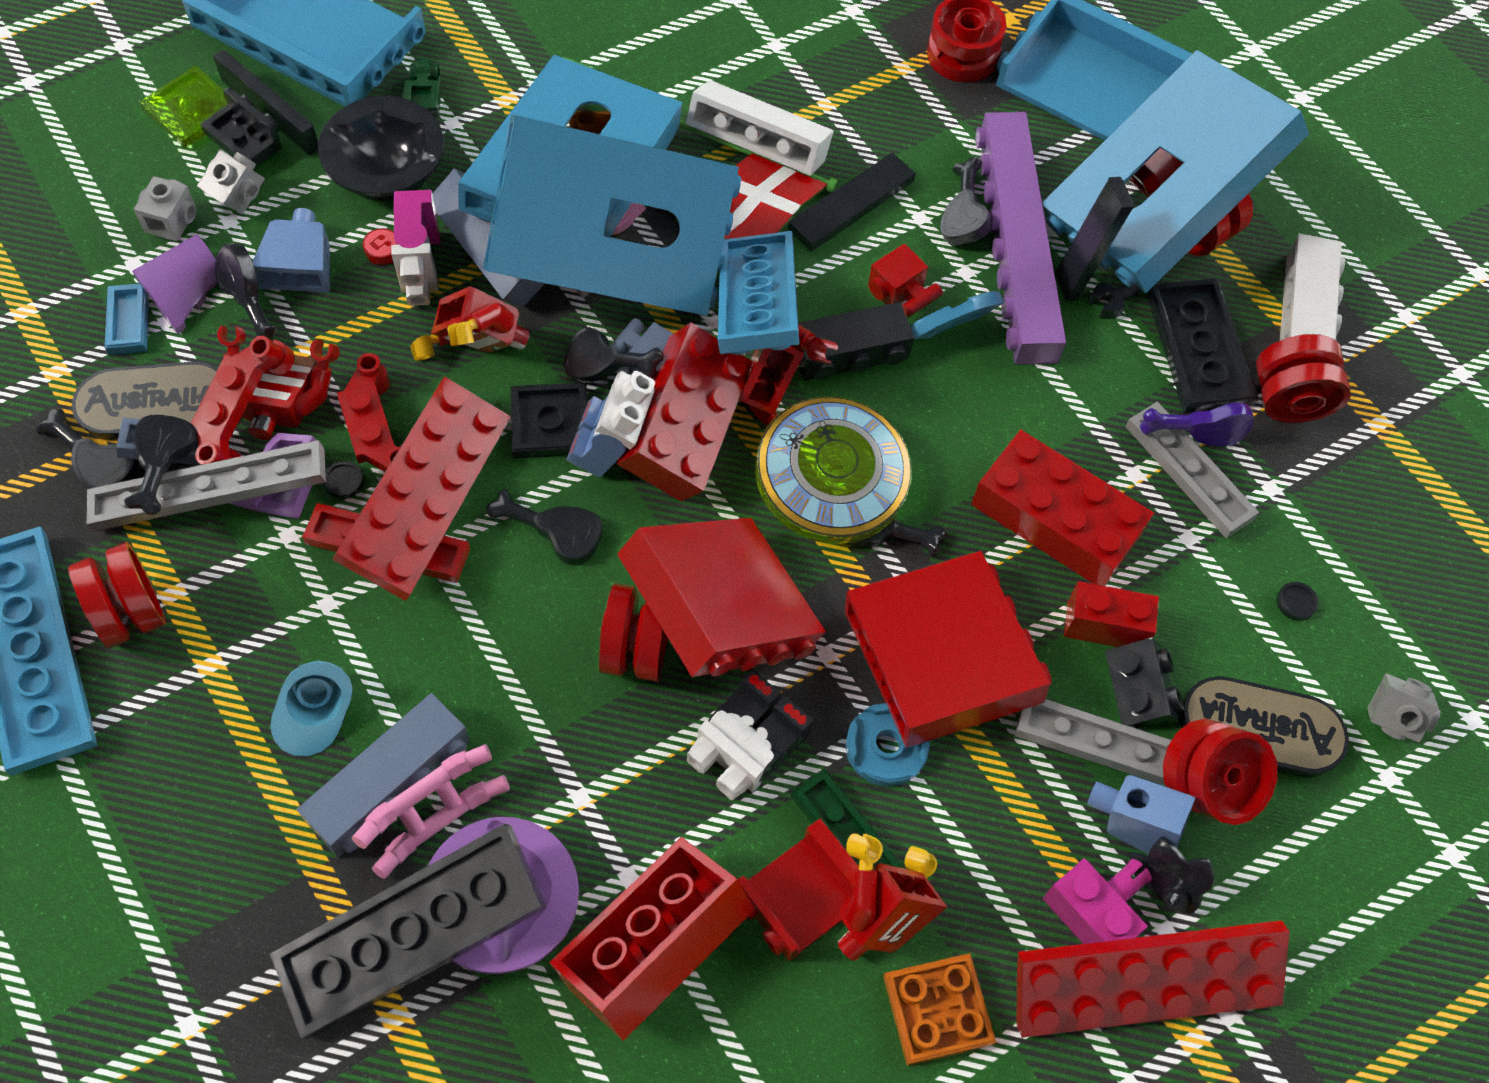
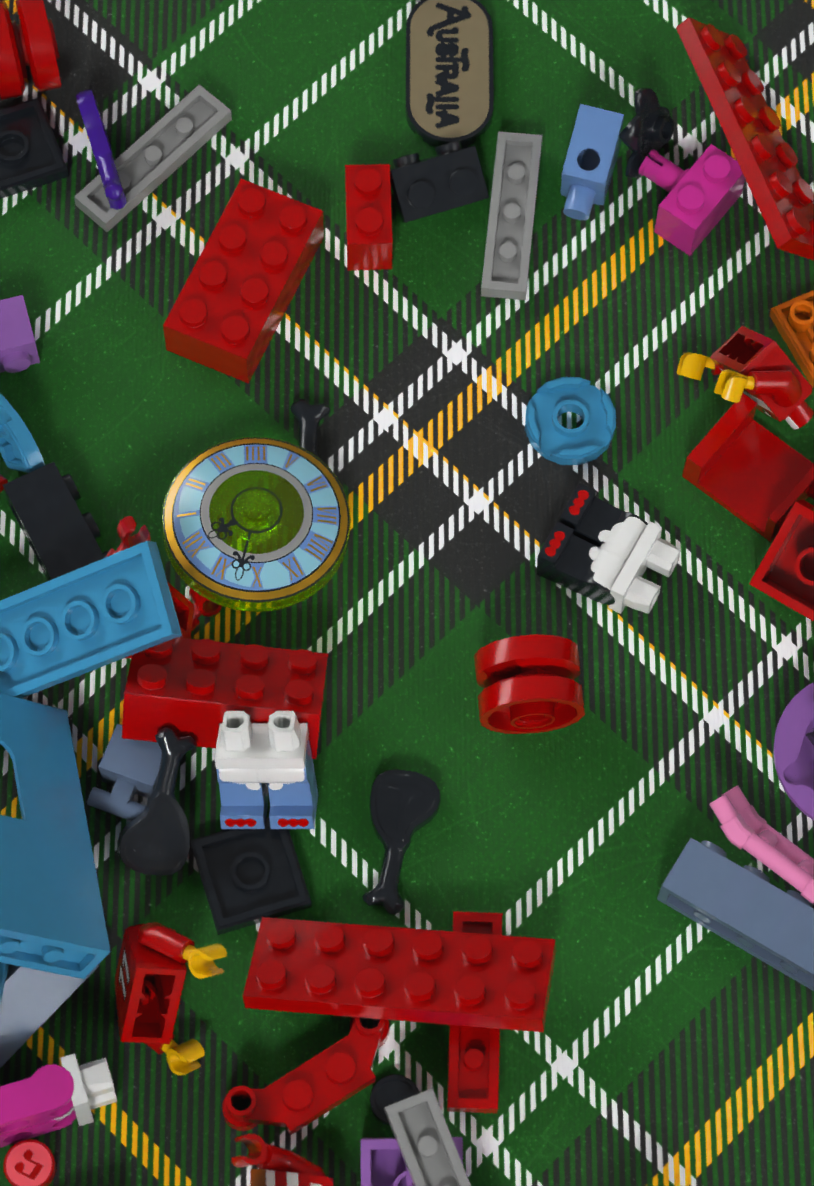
camera: 100 degrees left, 5 degrees up
(311, 708) = (704, 1021): medium azure piece -> none
(720, 595) = (472, 592): red brick -> none
(825, 800) = (664, 455): dark green tile -> none
(946, 648) = (452, 371): red brick -> none
(1223, 768) = (531, 93): red wheel -> none
(1297, 601) = (290, 48): black piece -> none

